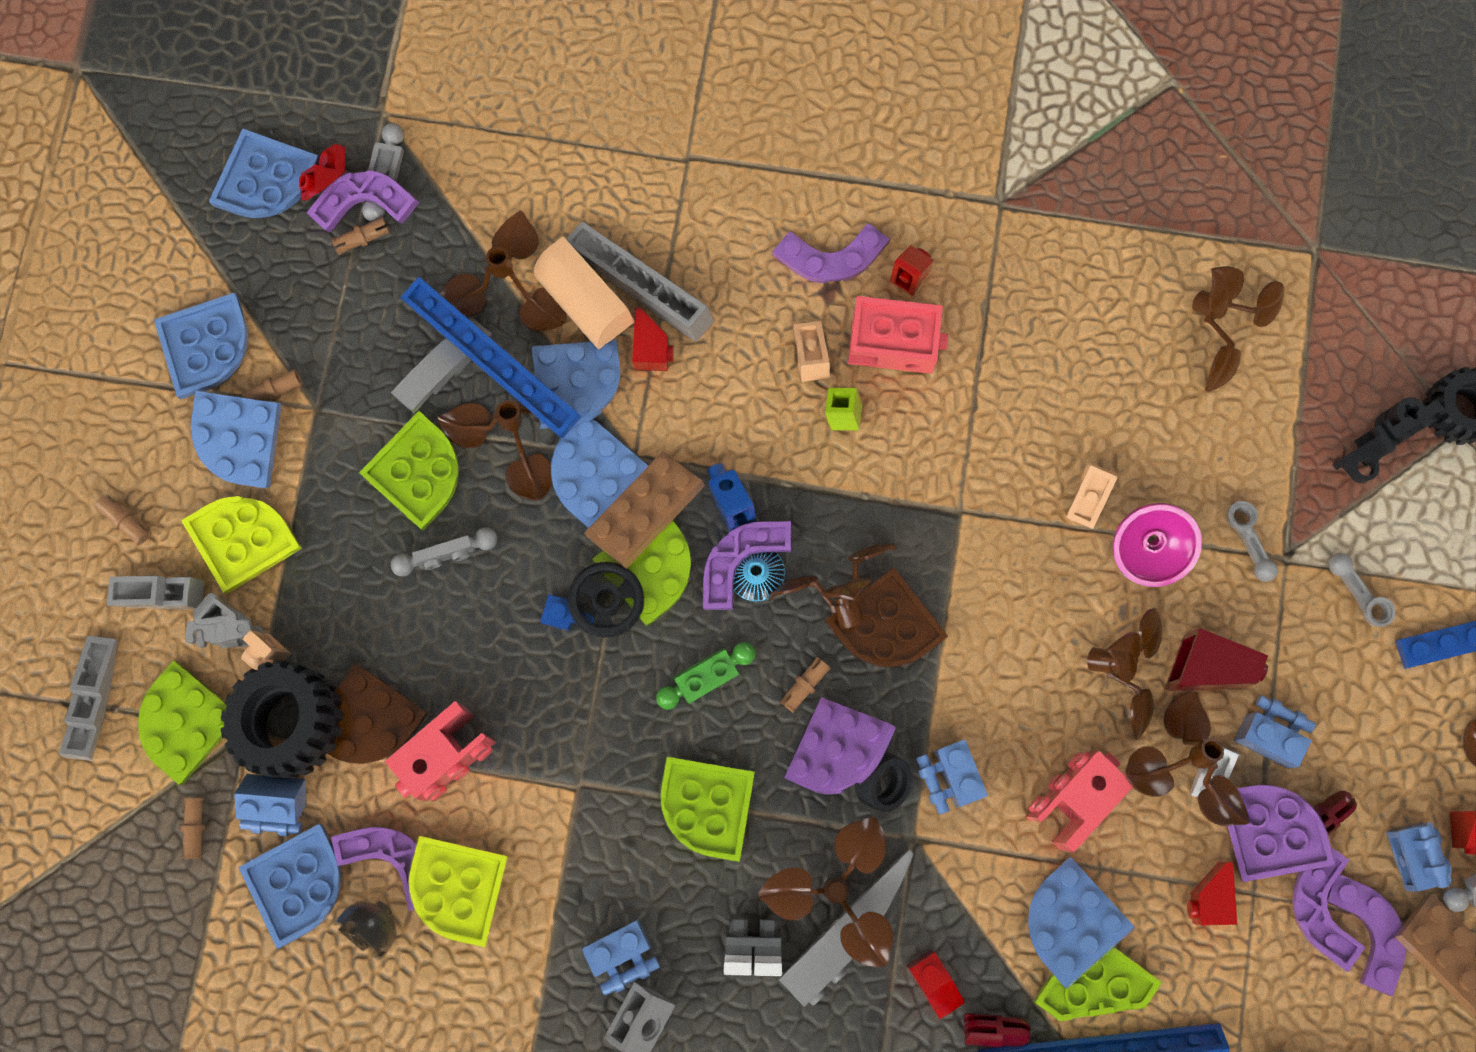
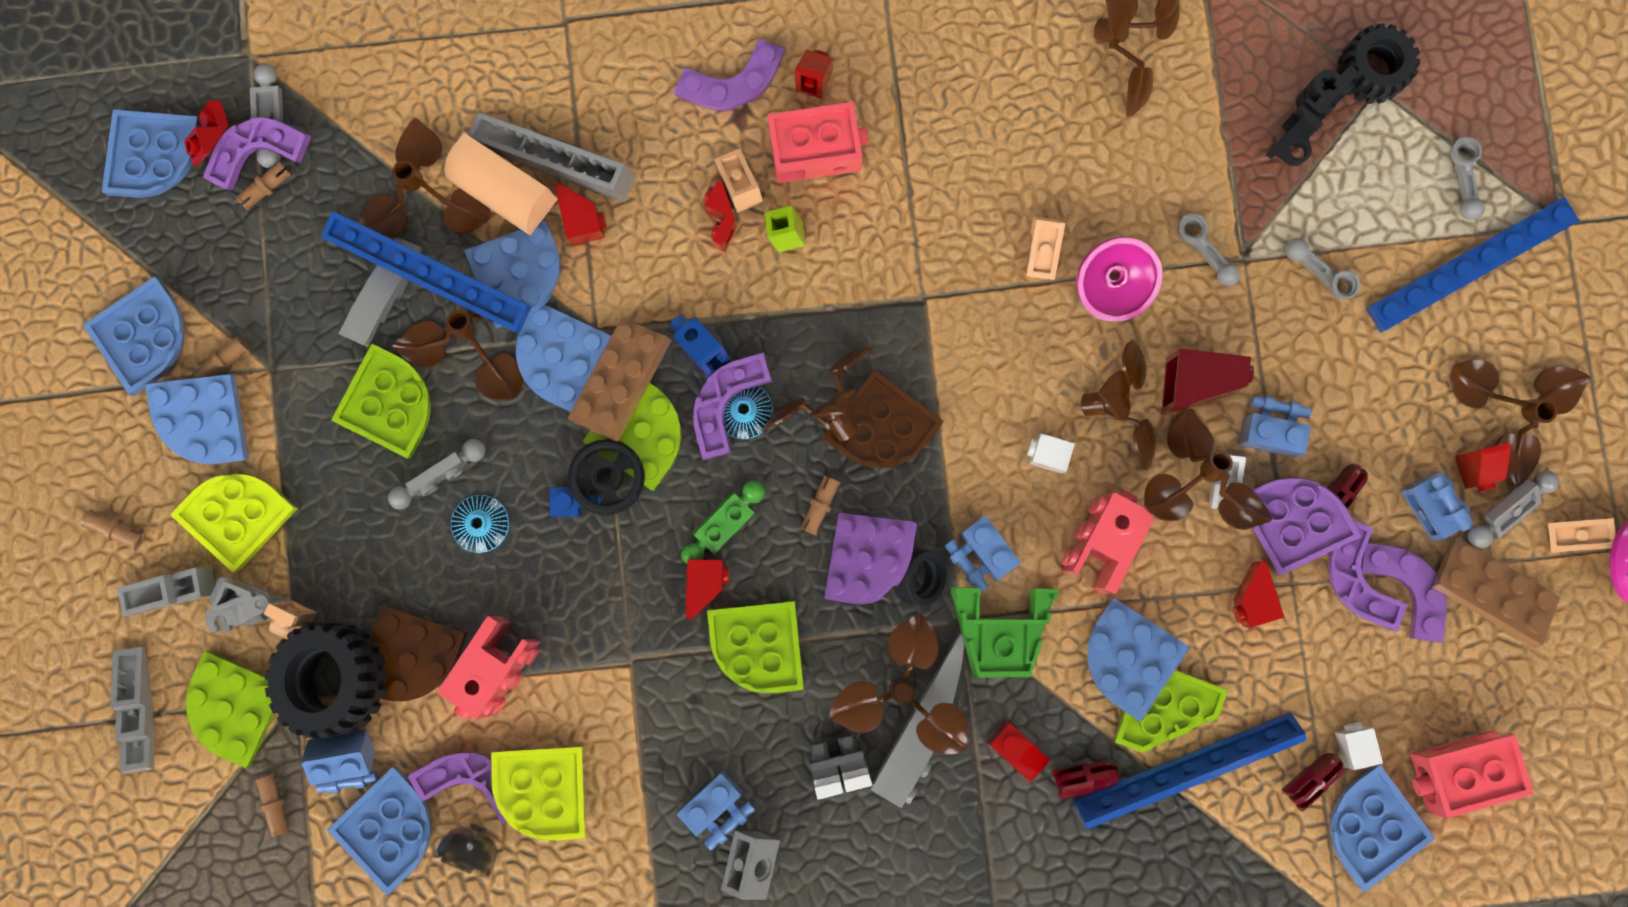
camera: 15 degrees left, 5 degrees up
(481, 621) = (494, 523): none -> dish
(671, 730) = (704, 584): none -> red slope
(786, 371) = (718, 206): none -> red slope
(946, 872) = (1002, 644): none -> bright green wing
(1045, 696) = (1050, 453): none -> white brick

